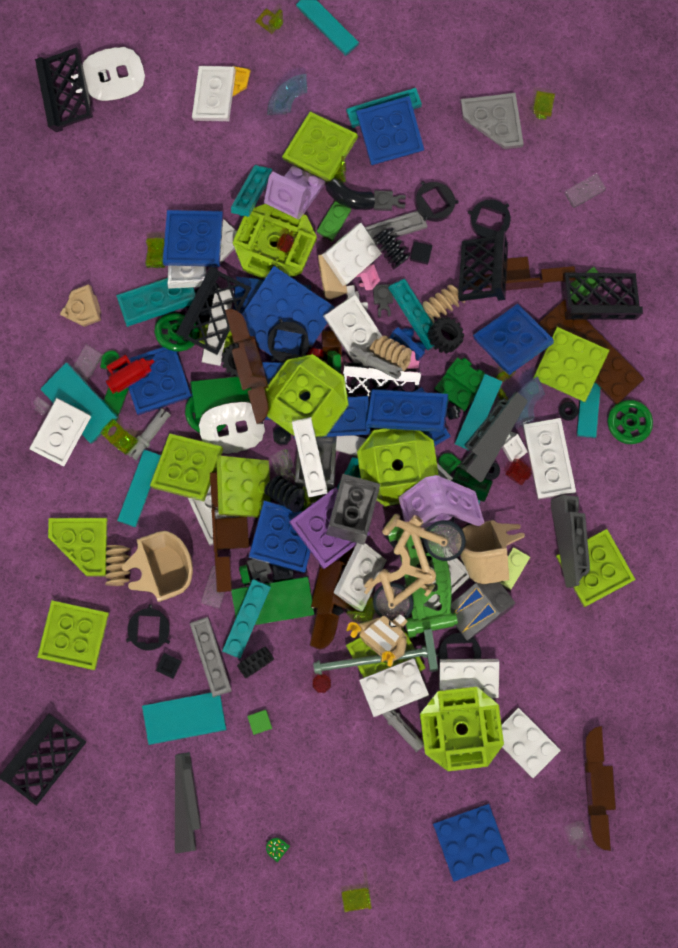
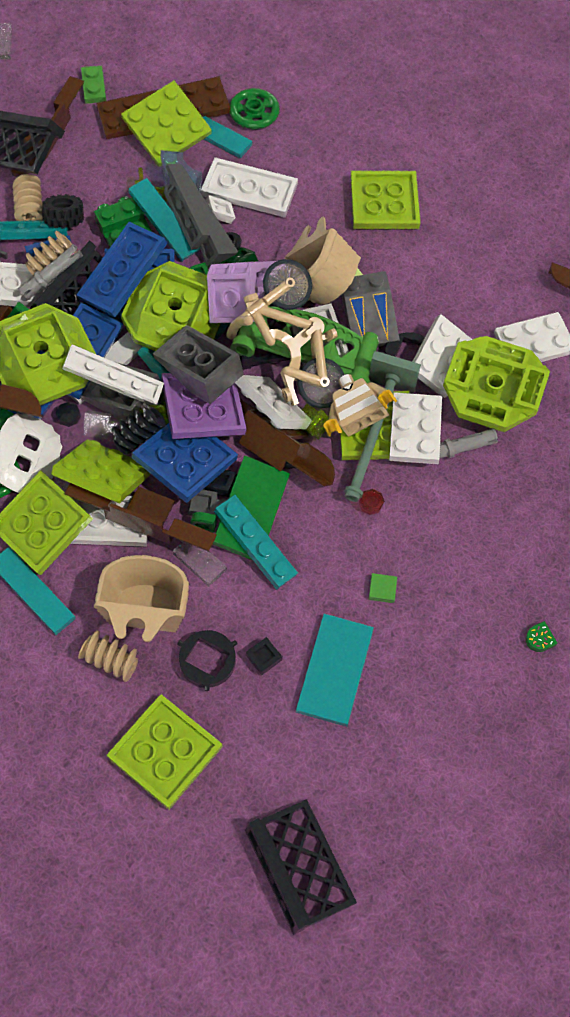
camera: 65 degrees left, 15 degrees down
(82, 542) = (55, 686): lime plate -> none
(186, 805) = (444, 715): dark grey wedge -> none
(210, 657) = (278, 604): light grey tile -> none
(255, 662) = (312, 553): black tyre -> none
(513, 339) = (108, 156): blue plate -> none
(518, 472) = (248, 216): clear red tile -> none
(570, 405) = (210, 150): black plate -> none
(571, 538) = (343, 201): dark grey wedge -> none
(605, 311) = (128, 76): black fence -> none

